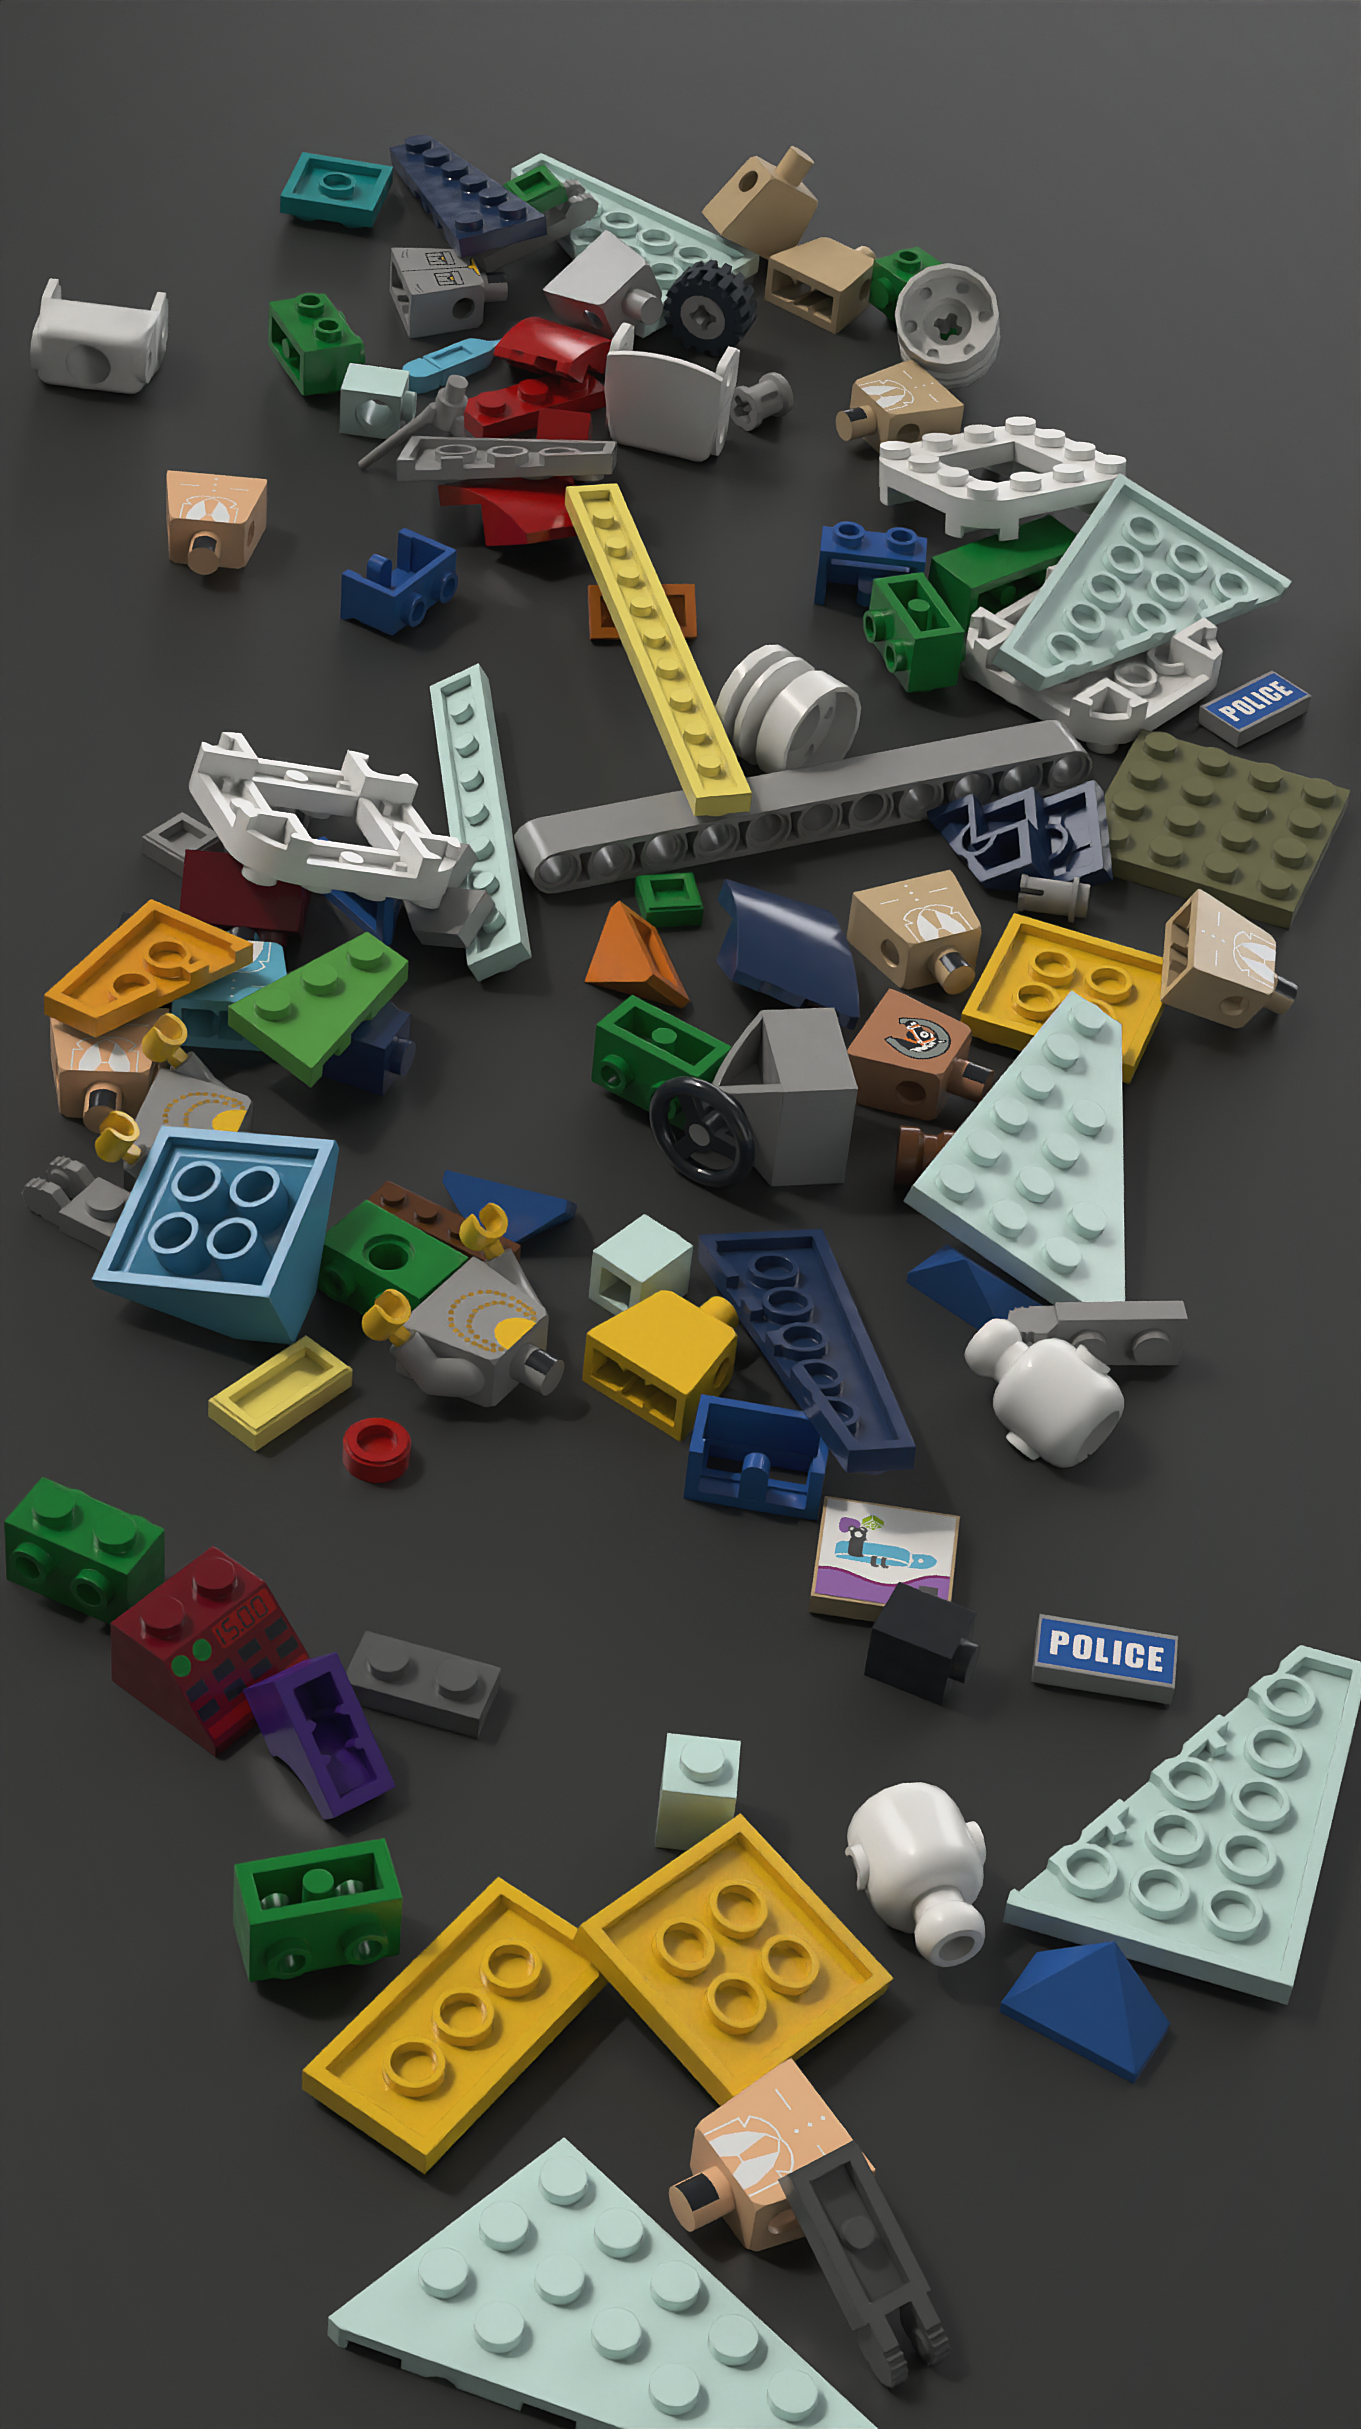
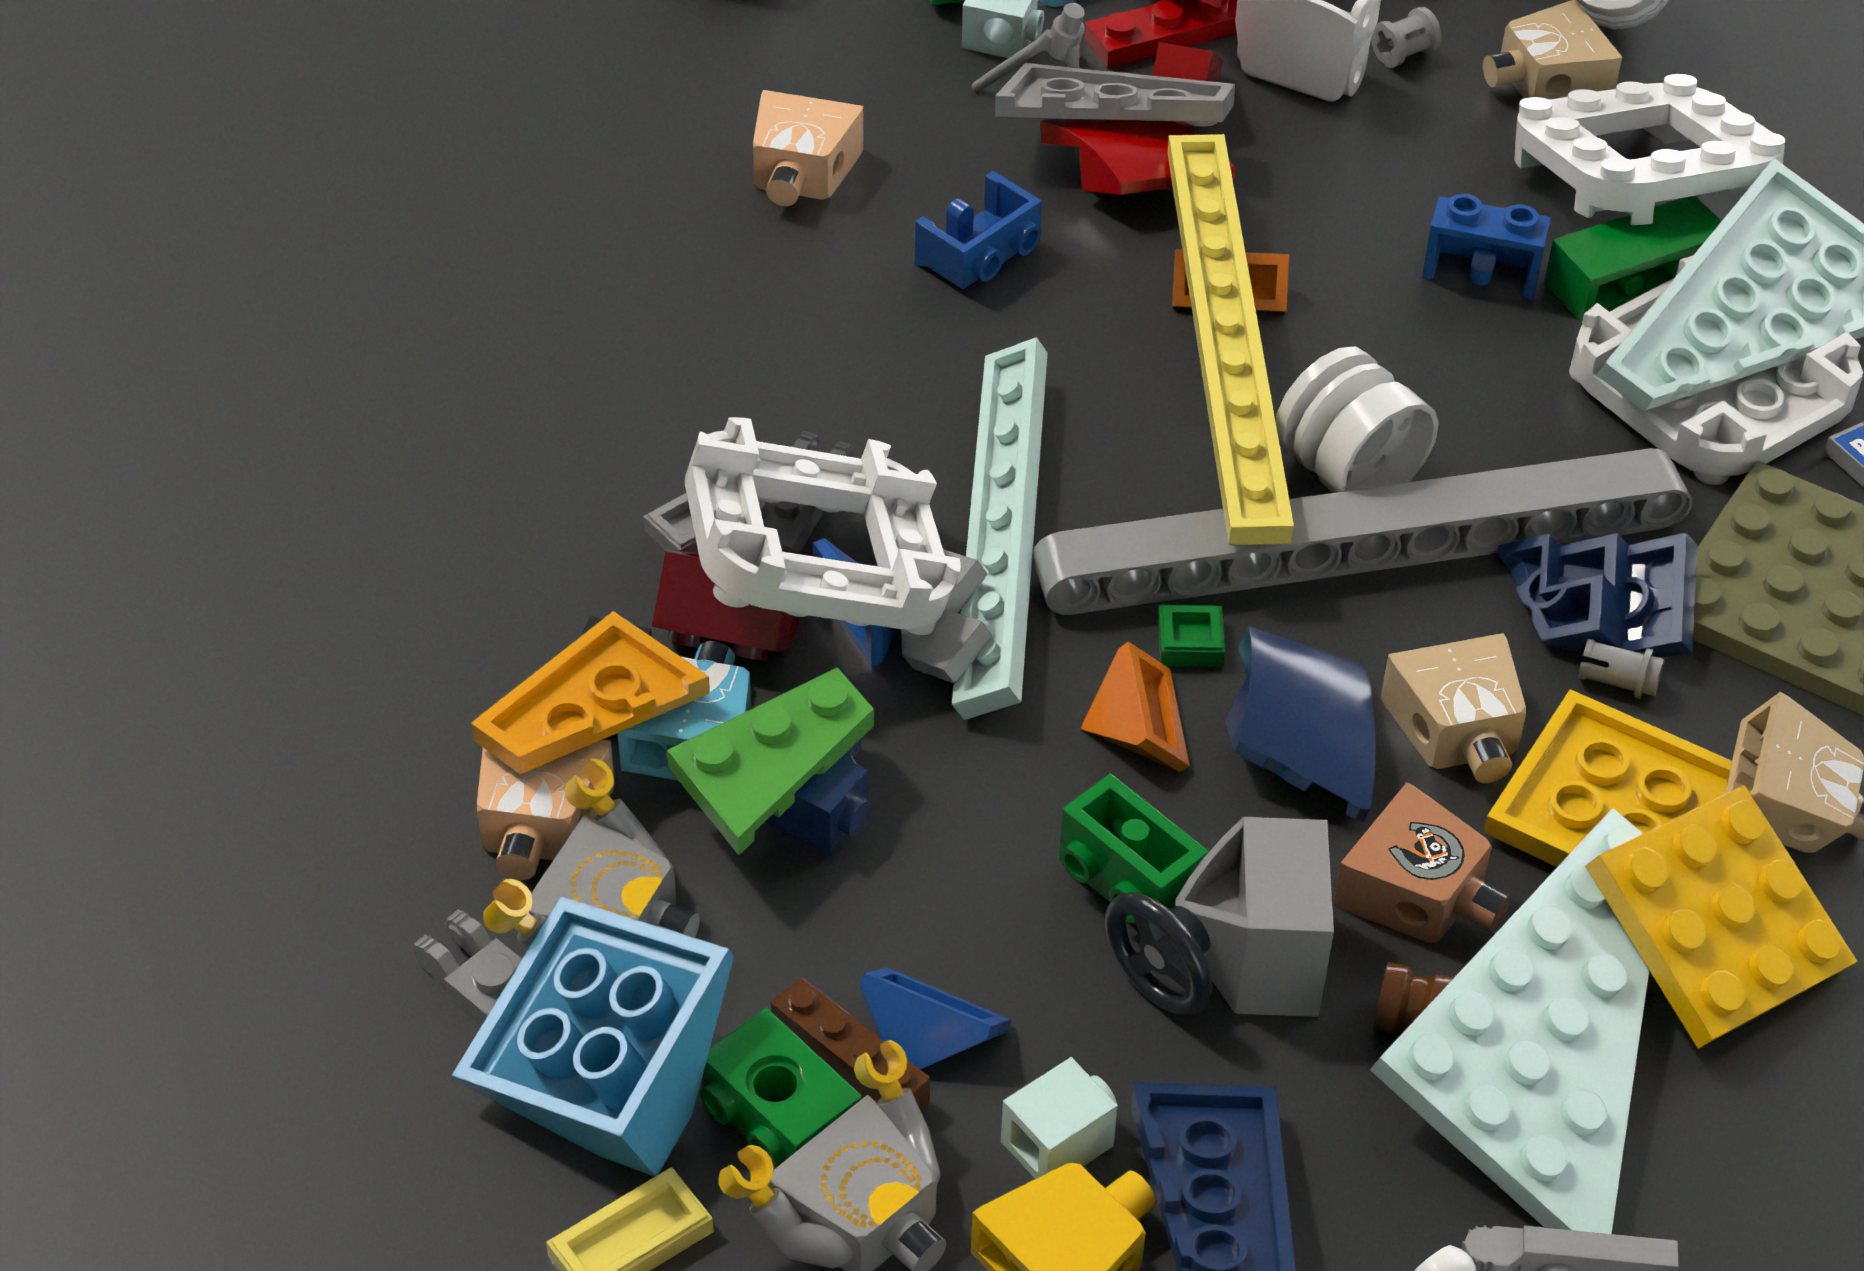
camera: 15 degrees right, 5 degrees up
(914, 632) = (1519, 328): green brick -> none
(966, 1287) = (1439, 1182): blue slope -> none
(1175, 1066) = (1720, 915): none -> yellow plate

